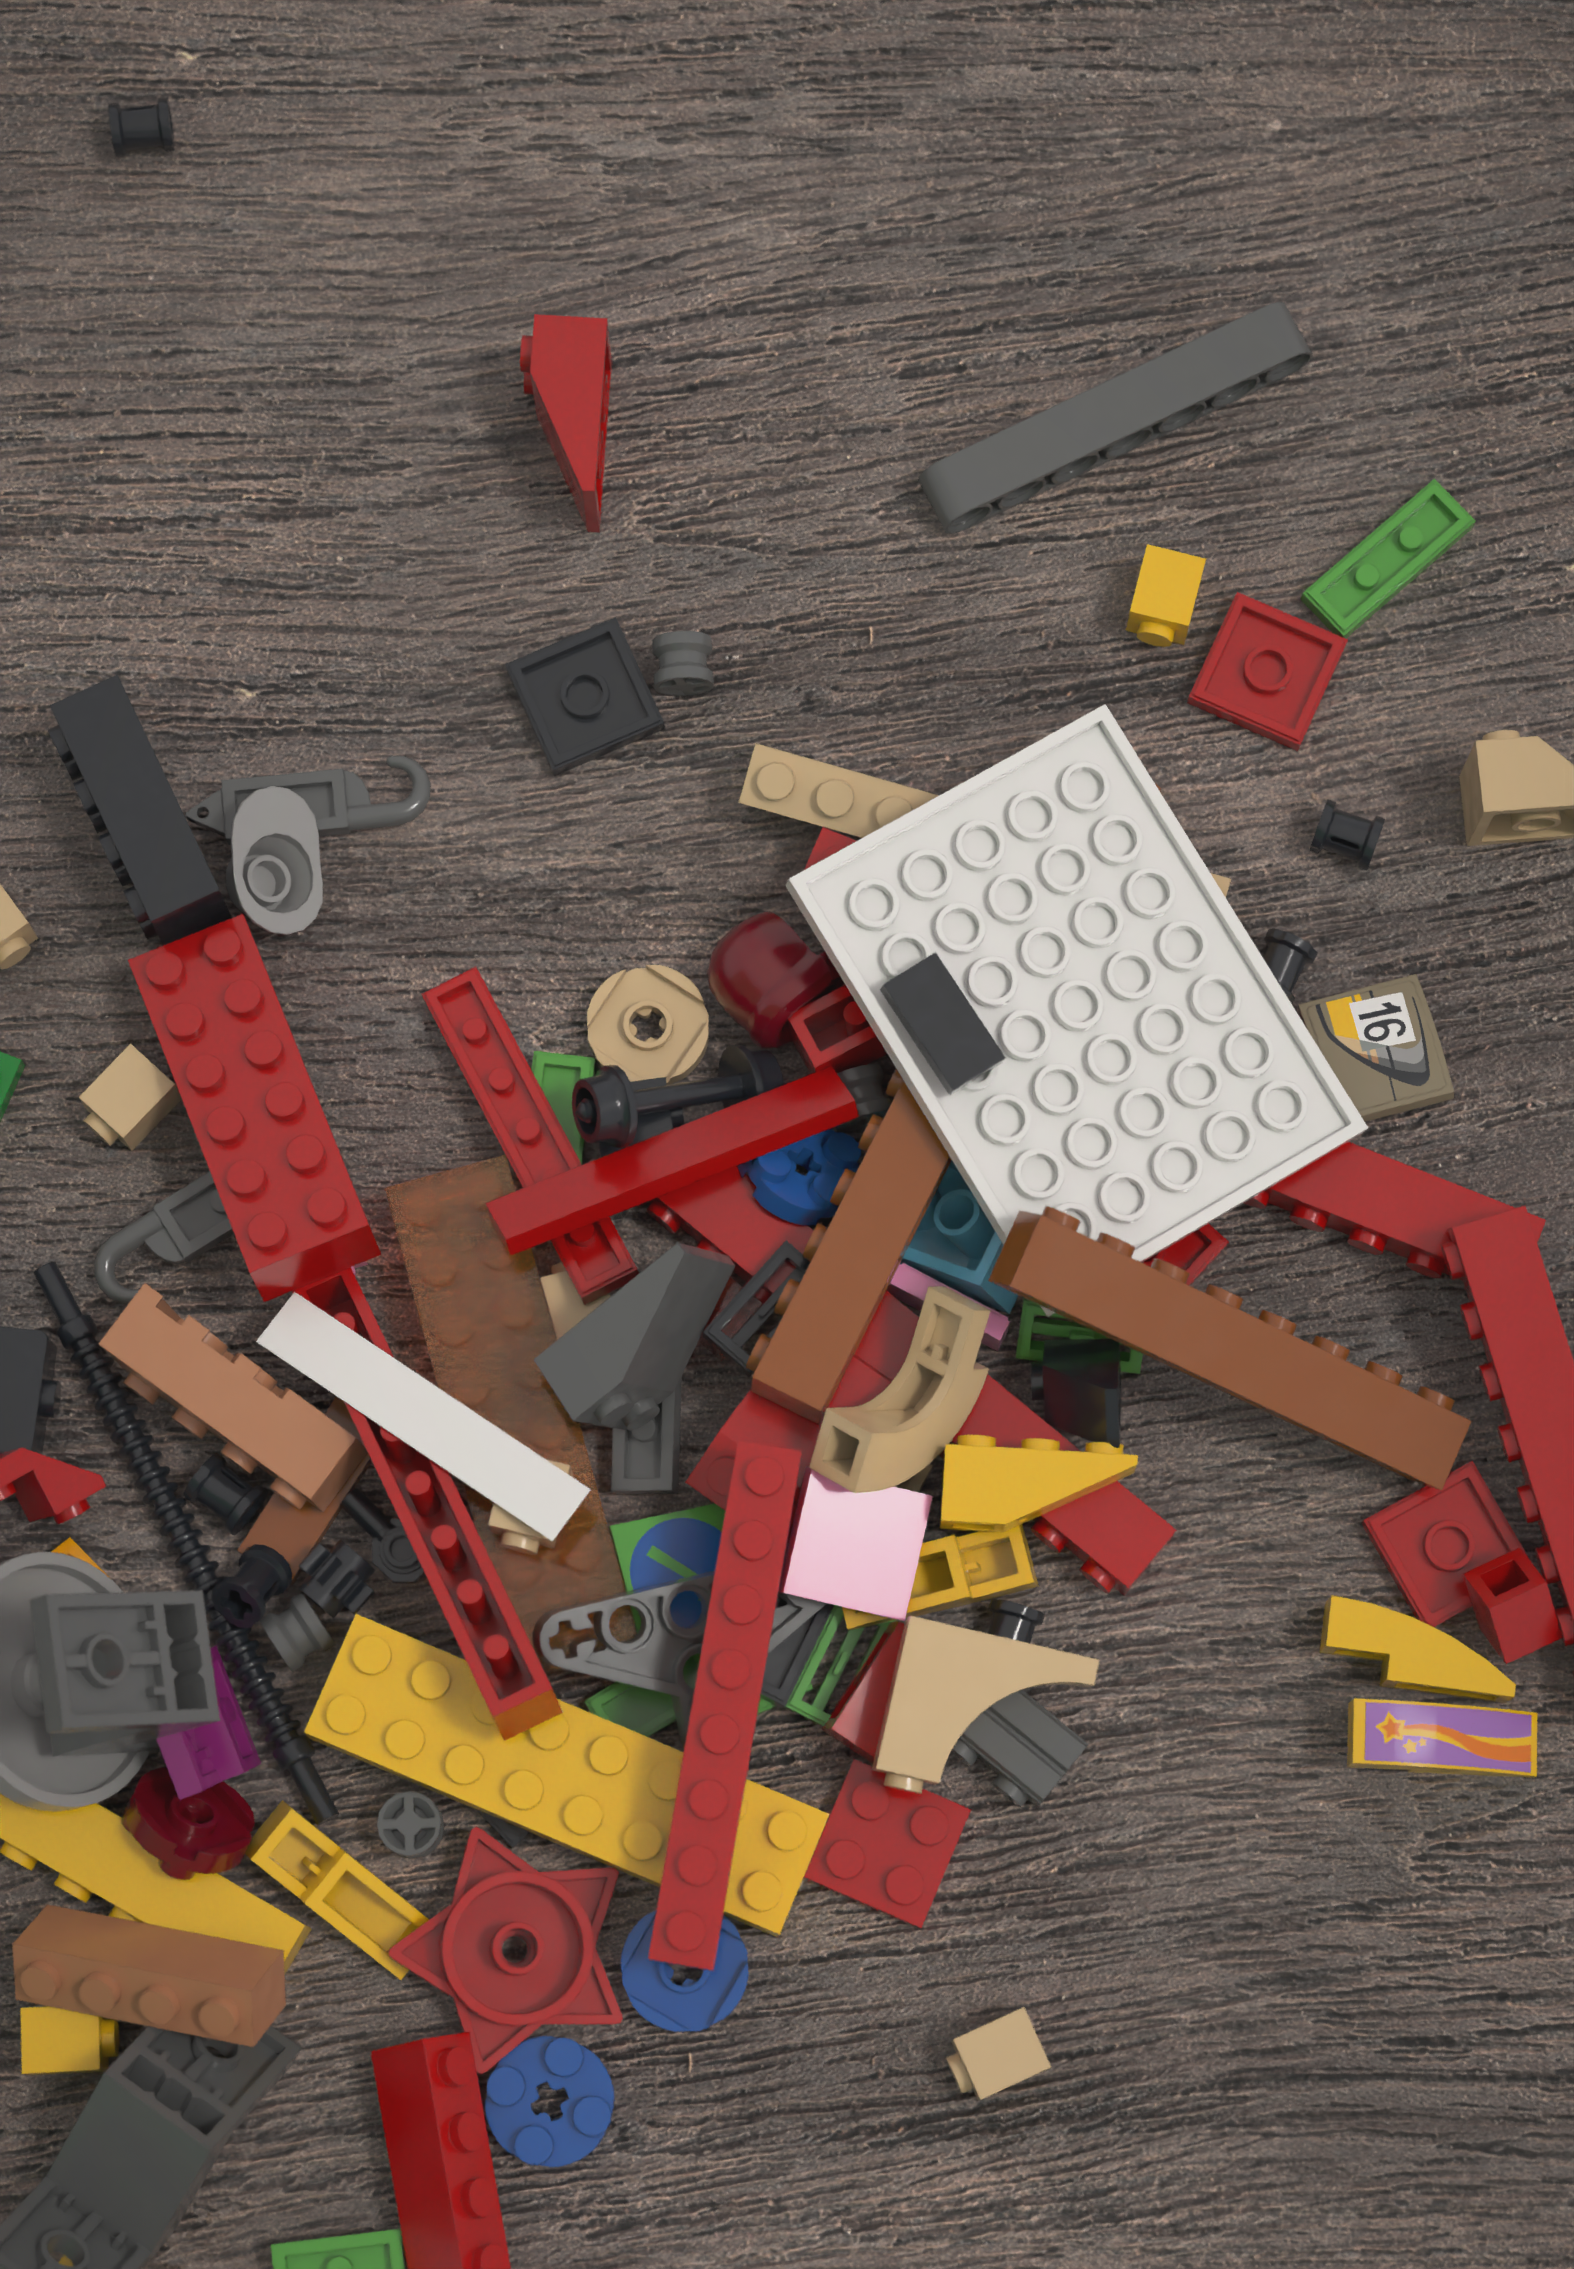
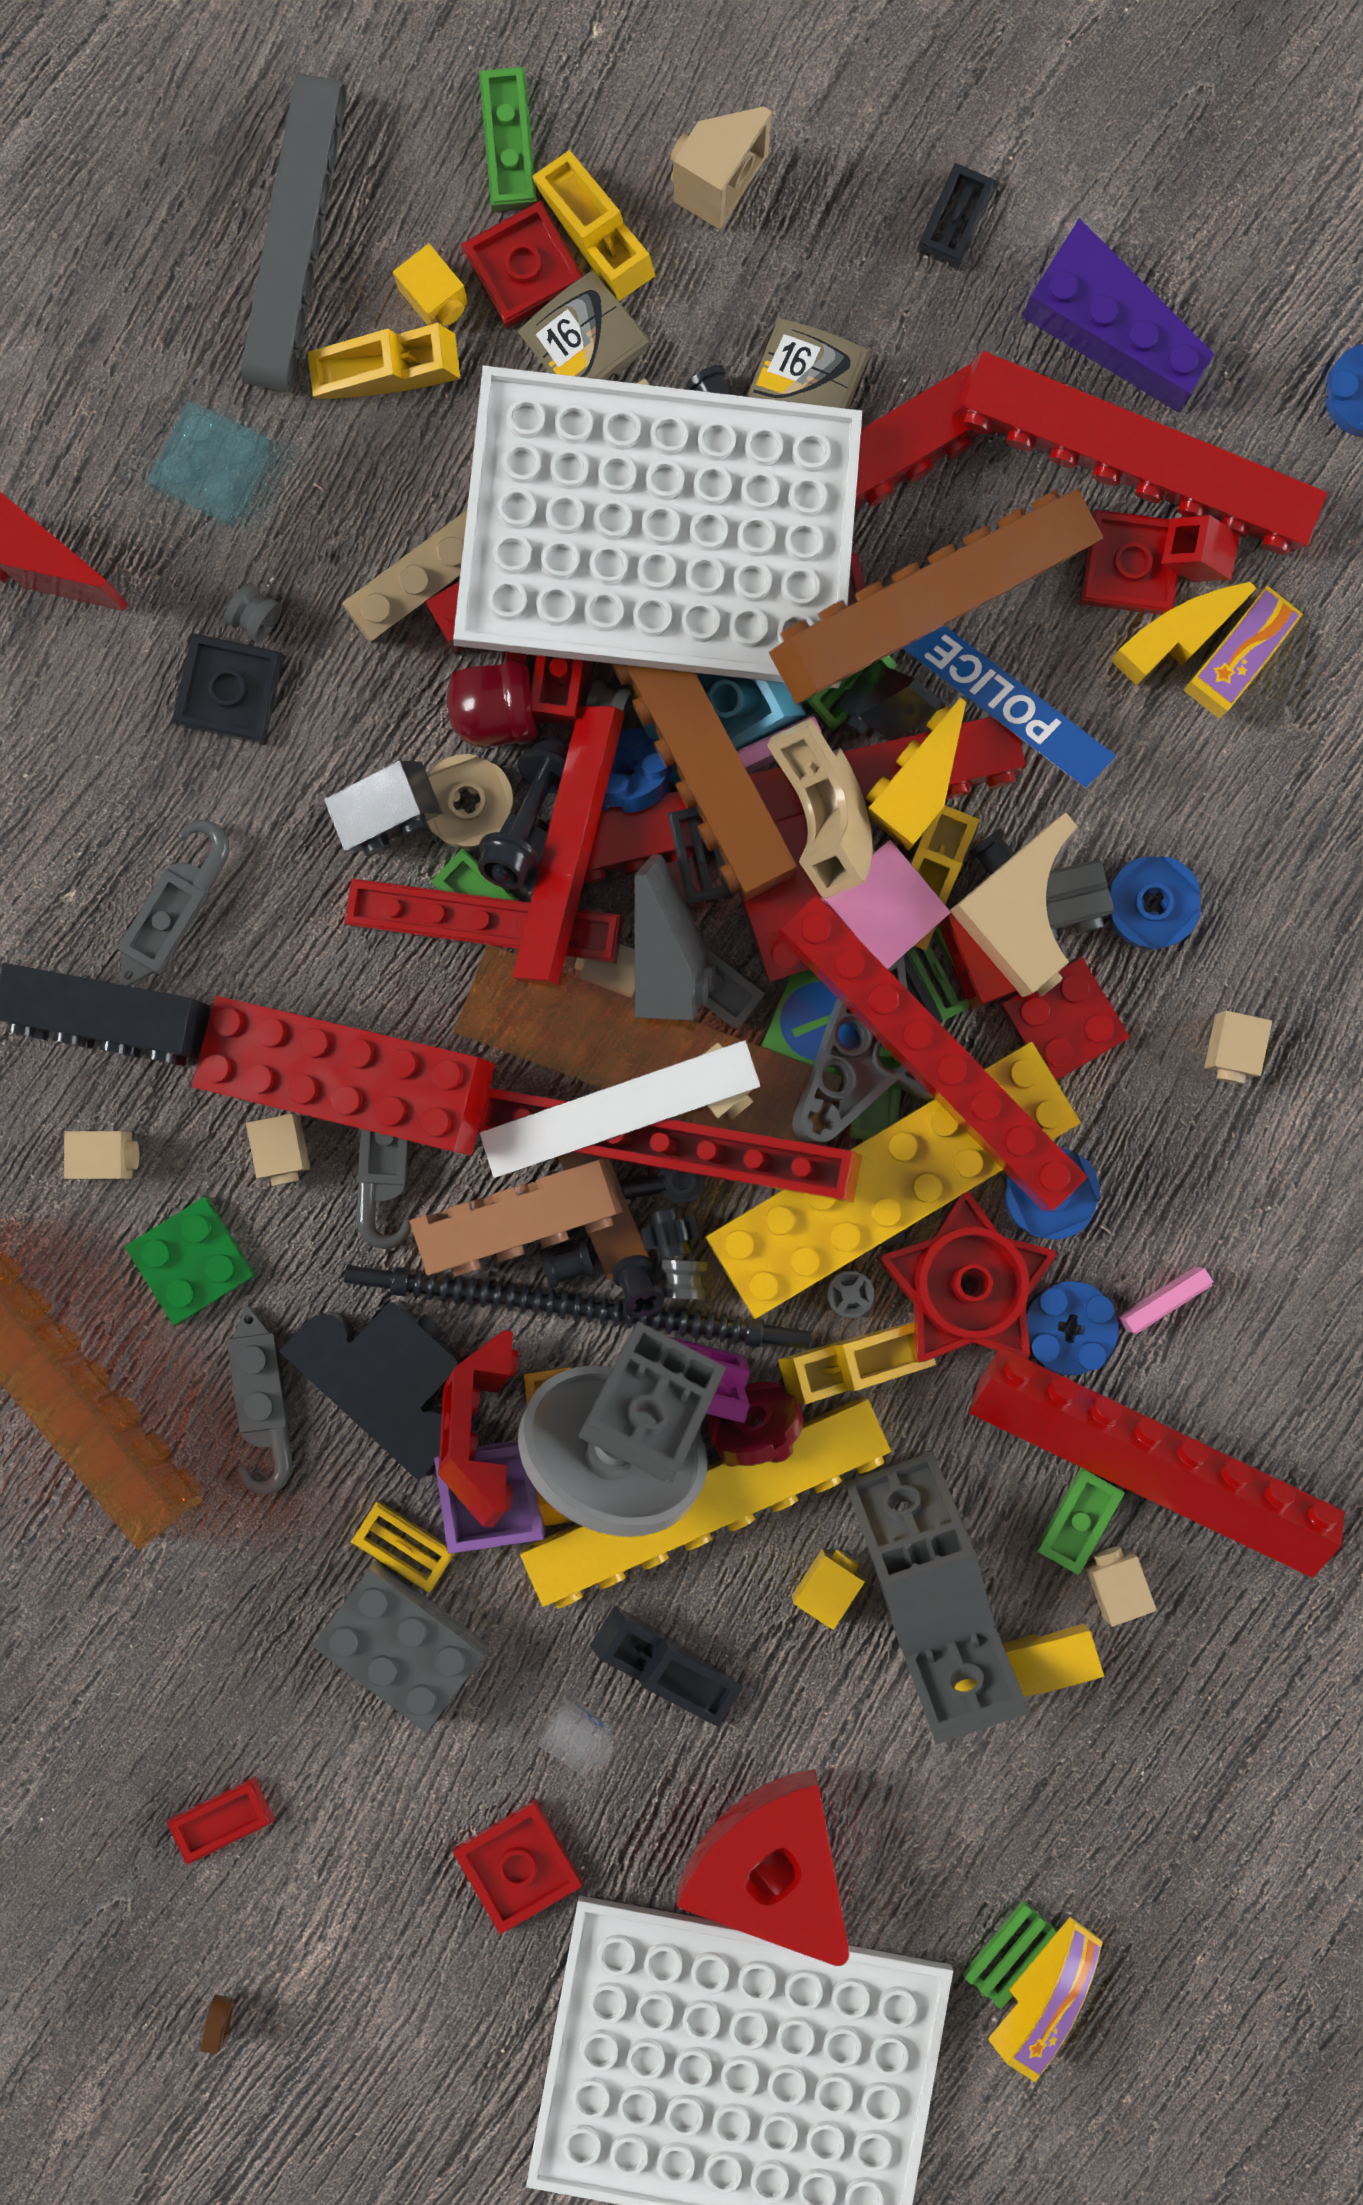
camera: 50 degrees left, 10 degrees up
(149, 1975) = (832, 1513): nougat brick -> none
(275, 861) = (195, 952): light grey piece -> none
(573, 943) = (383, 807): none -> brick
(655, 2182) = (1165, 1300): none -> bright pink tile
(810, 507) = (210, 463): none -> clear light blue plate
(942, 1023) = (615, 612): black tile -> none
(1050, 606) = (384, 363): none -> yellow slope
(1119, 1821) = (1180, 902): none -> blue plate
(1183, 1523) = (1012, 704): none -> blue sticker
(1240, 787) = (585, 332): none -> slope
(1347, 834) = (662, 292): black bush -> none
(1363, 713) = (594, 225): none -> yellow slope

